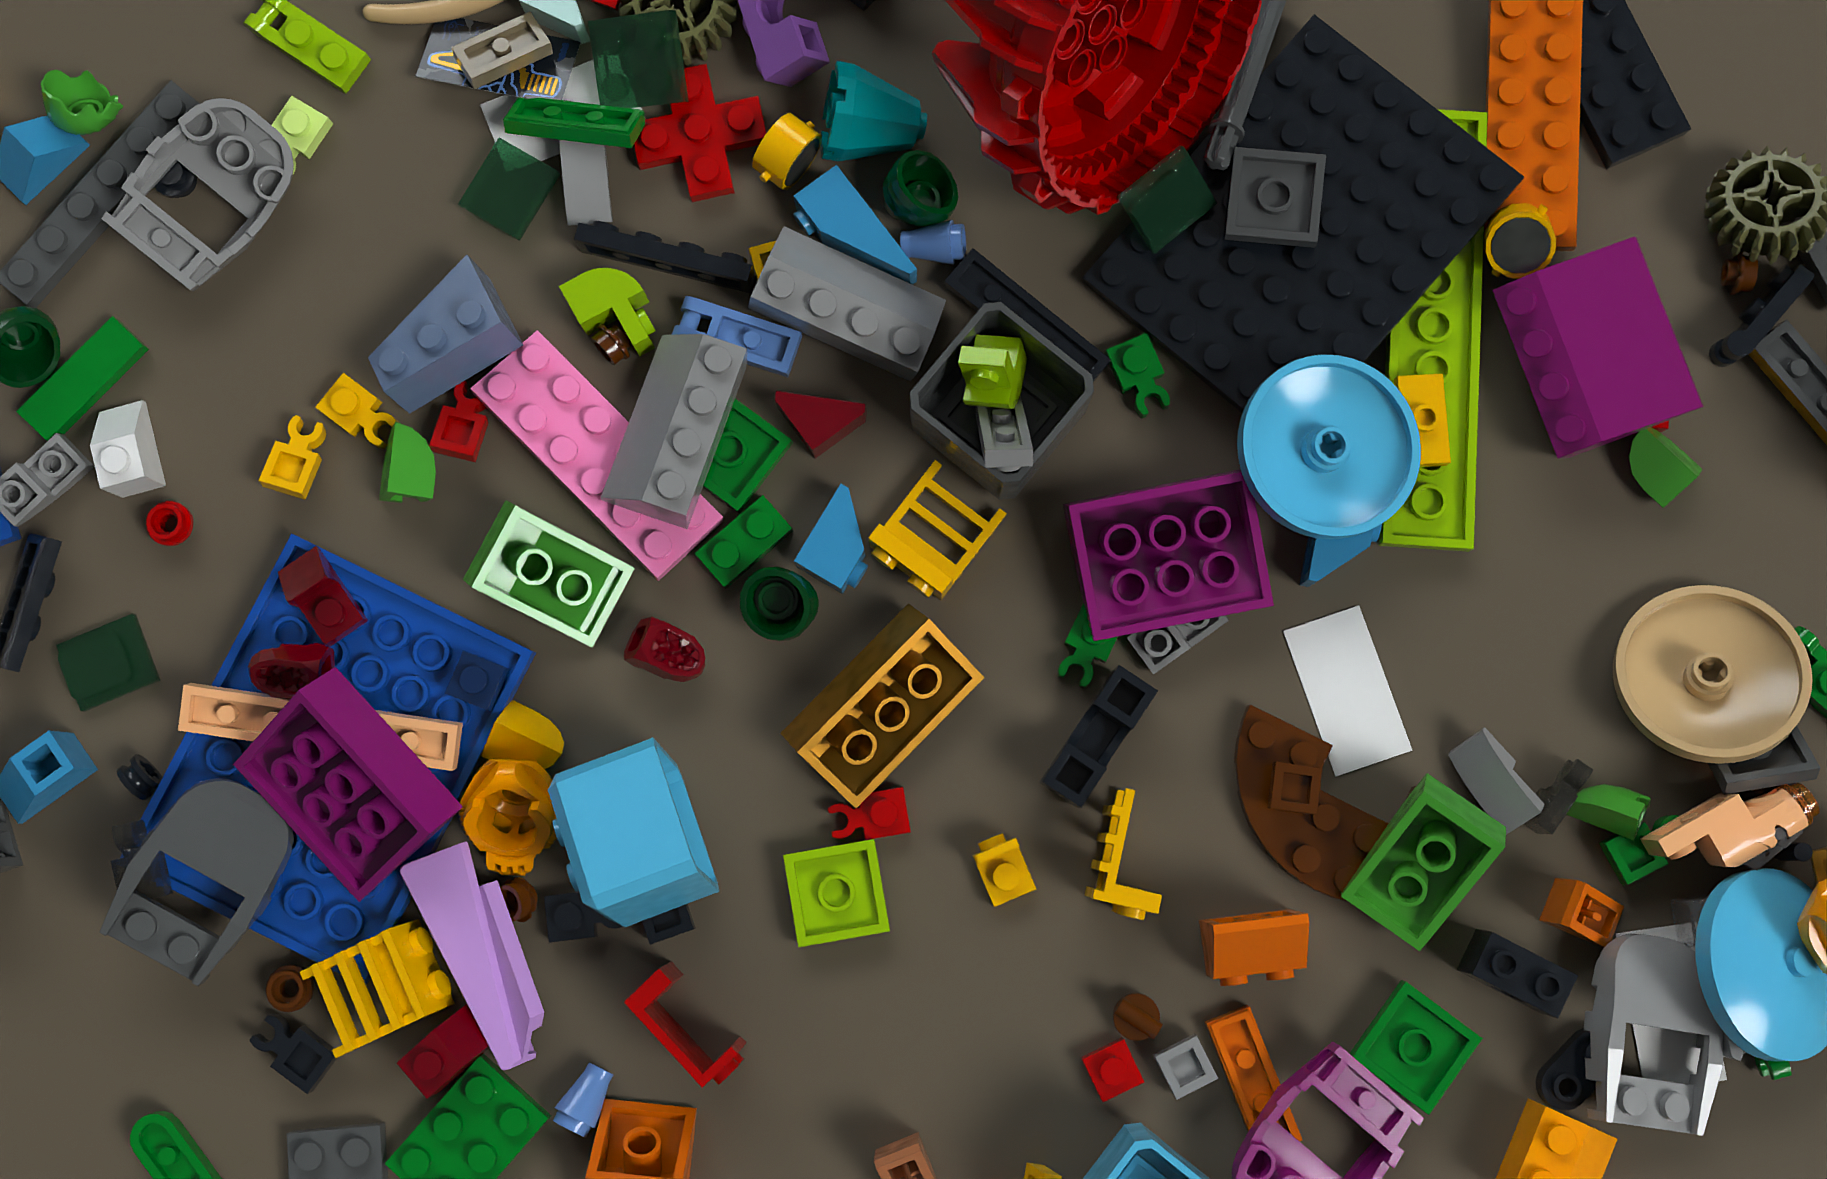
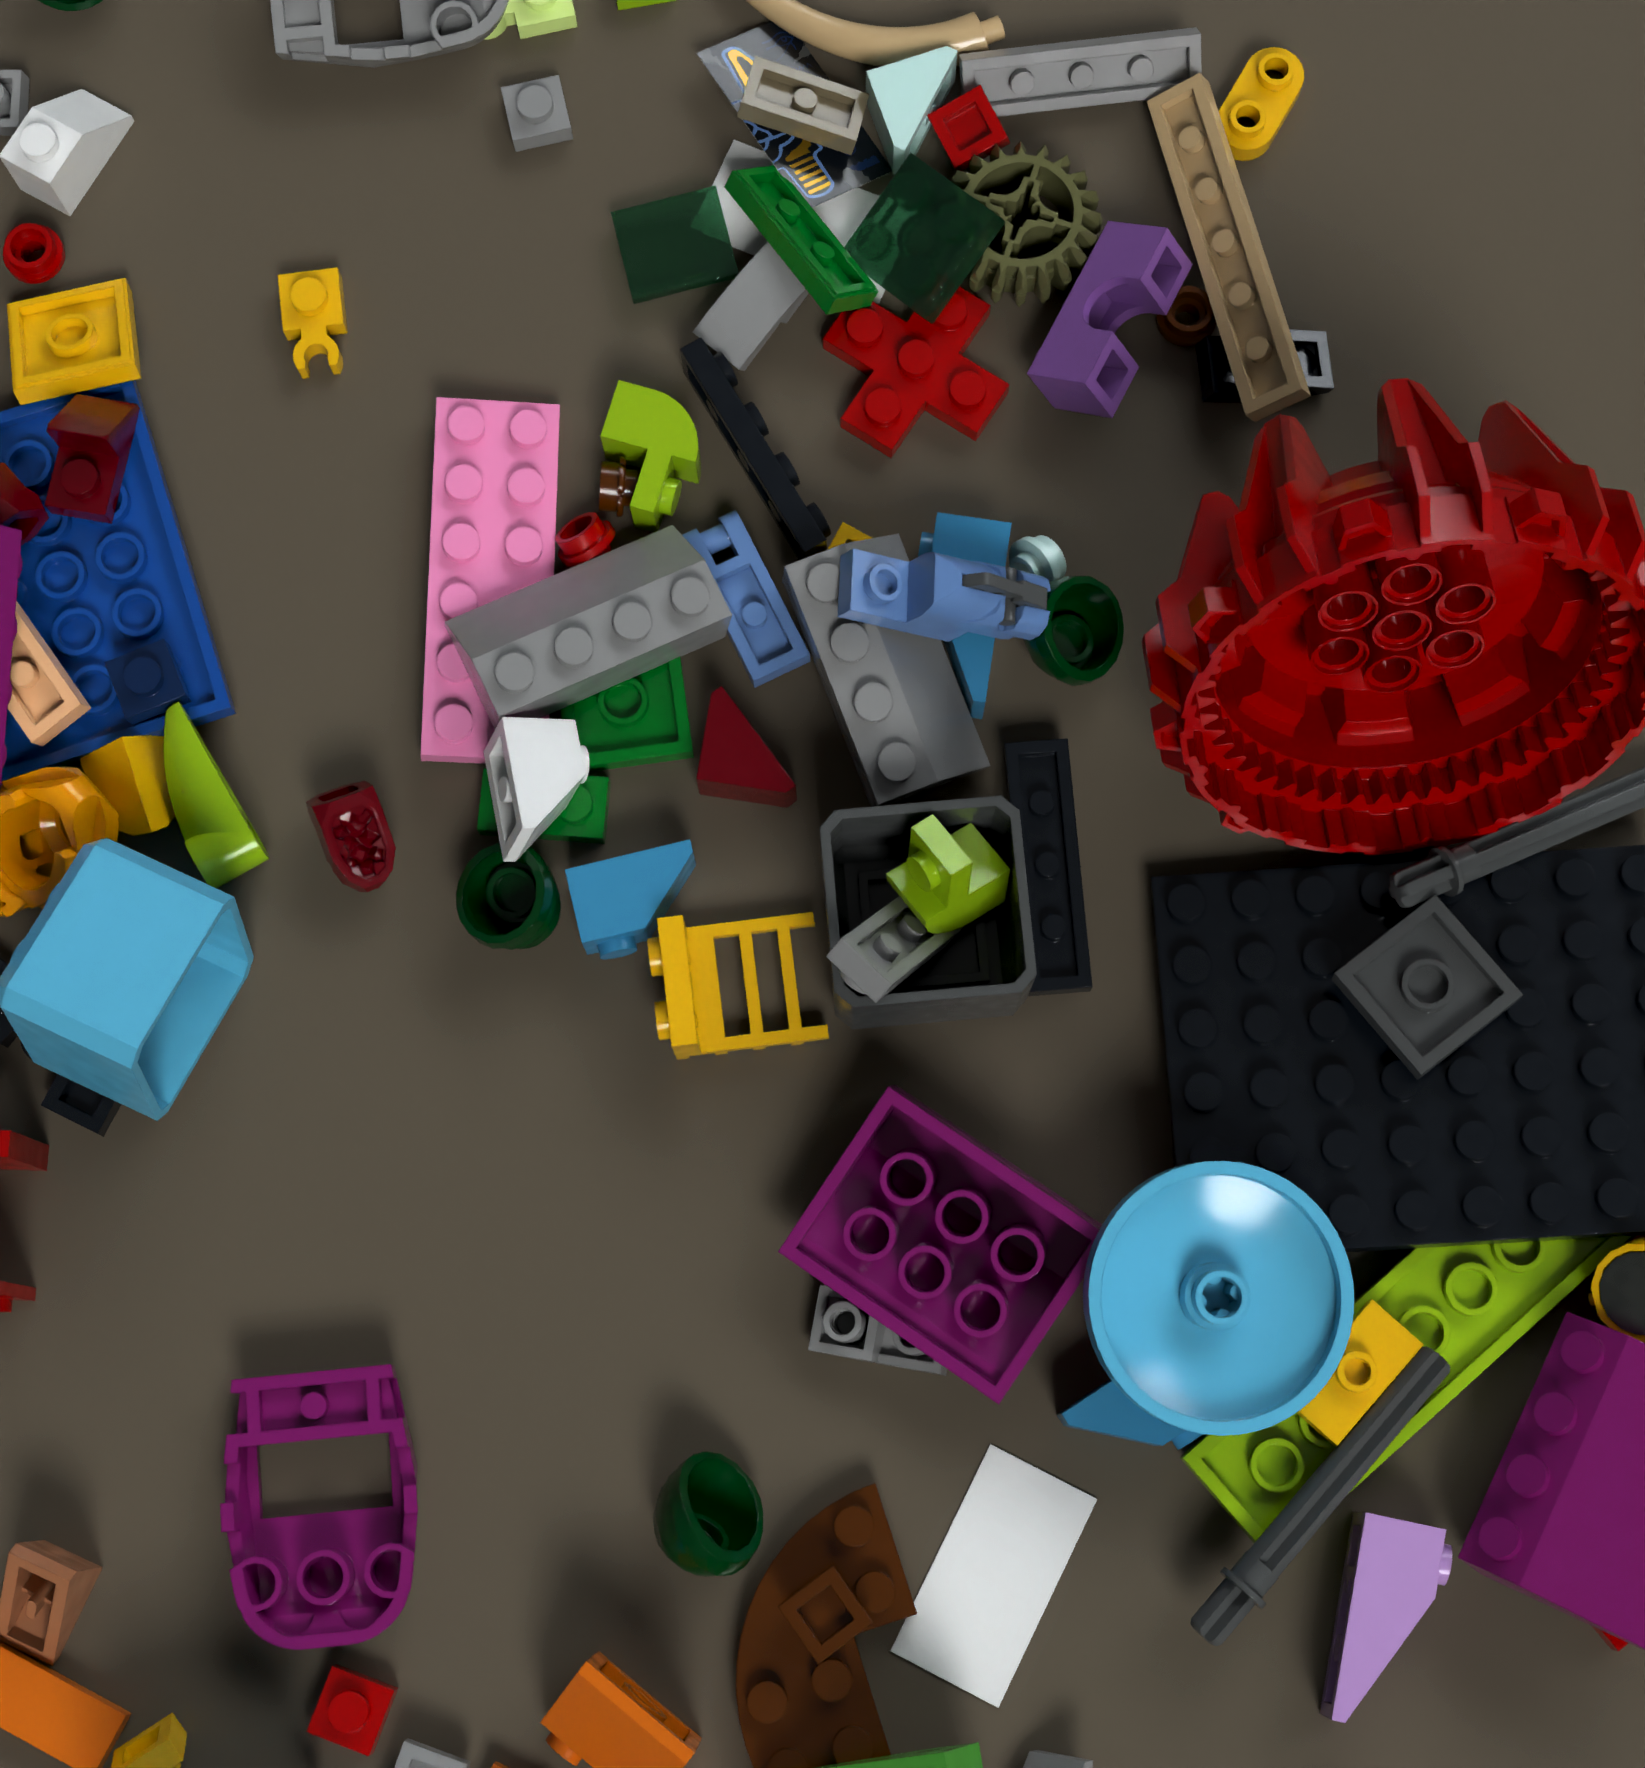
camera: 45 degrees right, 5 degrees down
(83, 379) = (99, 44): green tile -> none
(243, 547) = (73, 341): none -> yellow tile
(294, 465) = (201, 311): yellow plate -> none
(361, 189) = (537, 113): none -> light grey plate
(407, 466) = (303, 415): bright green brick -> none
(445, 339) = (462, 326): sand blue wedge -> none
(460, 429) = (388, 428): red plate -> none
(548, 574) = (323, 648): bright green slope -> none
(573, 713) = (205, 806): none -> lime piece
(624, 386) = (584, 539): none -> red plate
(731, 530) = (532, 777): none -> white slope
(786, 151) = (978, 464): yellow piece -> none
(836, 893) = (269, 1242): lime plate -> none
(845, 234) = (942, 596): none -> medium blue plate
(867, 116) = (1095, 507): teal cone -> none
(867, 174) = (1038, 556): none -> light aqua plate
(880, 815) = (392, 1208): red plate -> none
(882, 705) = (503, 1102): pearl gold slope -> none
(937, 242) = (1038, 699): medium blue cone -> none
(1003, 869) = (455, 1390): yellow bracket -> none
(1031, 1021) = (325, 1573): none -> magenta slope
(1085, 648) = (765, 1255): green plate -> none
(1098, 736) = (681, 1353): black arch -> none
(1125, 899) = (539, 1548): yellow plate -> none
(1136, 368) = (1114, 1024): green plate -> none
(1137, 1017) = (431, 1681): reddish brown plate -> none
(1167, 199) = (1310, 879): clear green piece -> none
(1190, 801) = (709, 1516): none -> dark green hat
(1466, 498) = (1318, 1498): none -> dark grey axle
(1539, 515) = (1383, 1594): none -> lavender slope
(1661, 466) = (1571, 1682): bright green brick -> none

